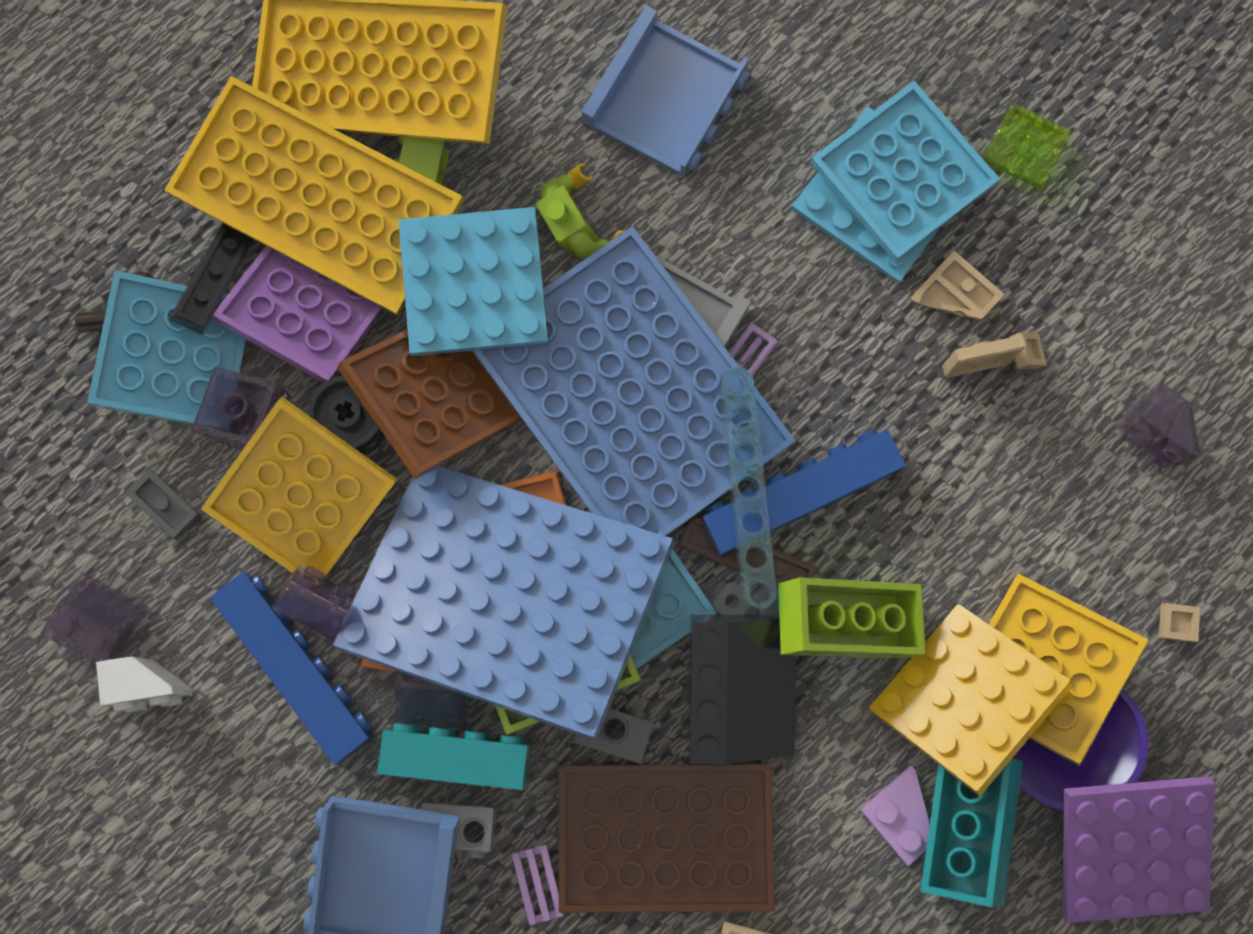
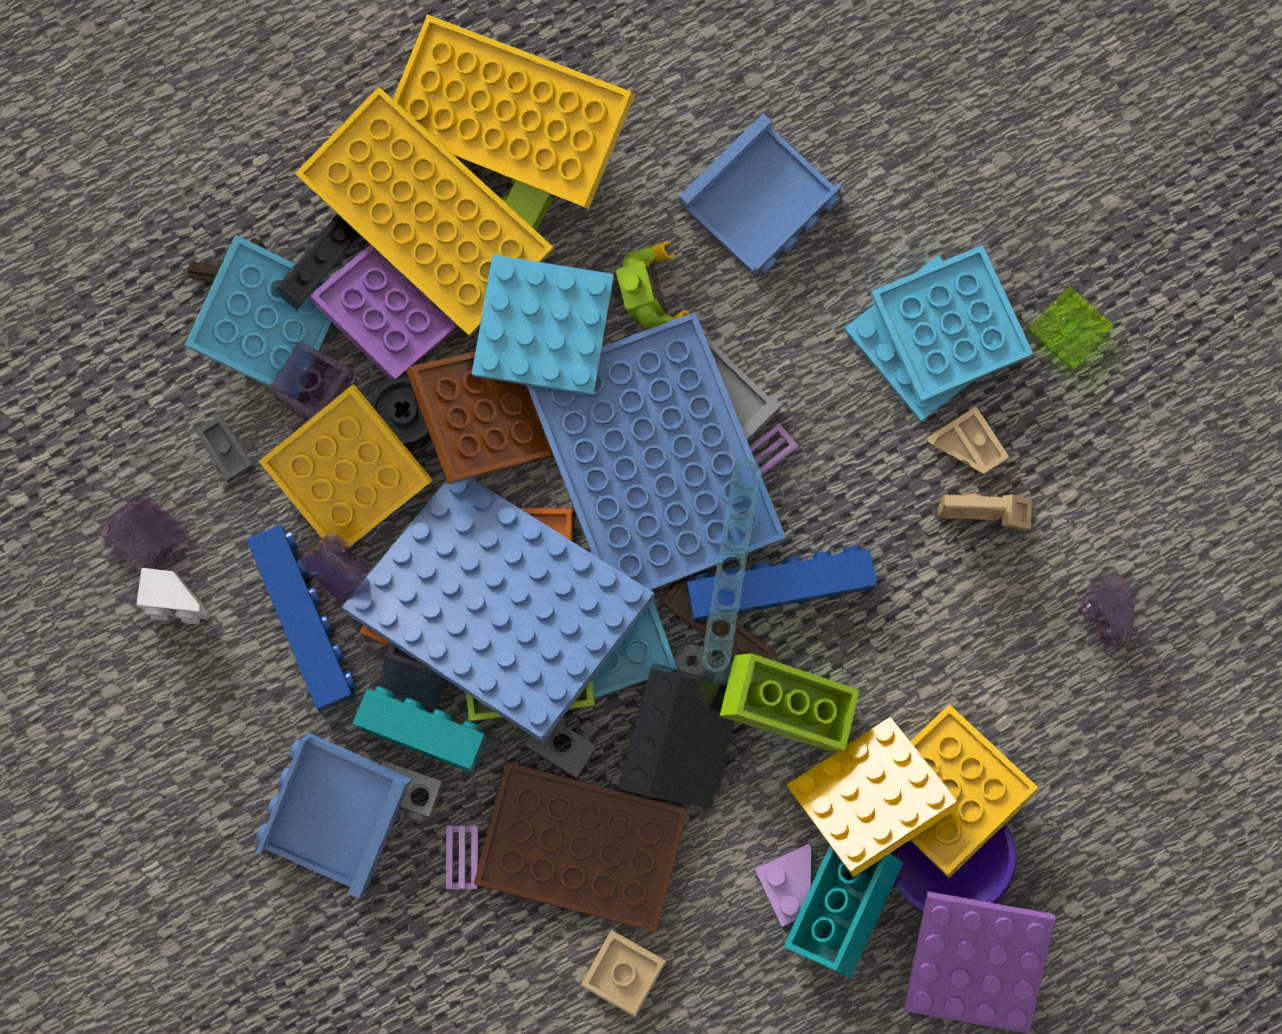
camera: 15 degrees right, 0 degrees up
(1179, 622) = (1078, 784): tan plate -> none

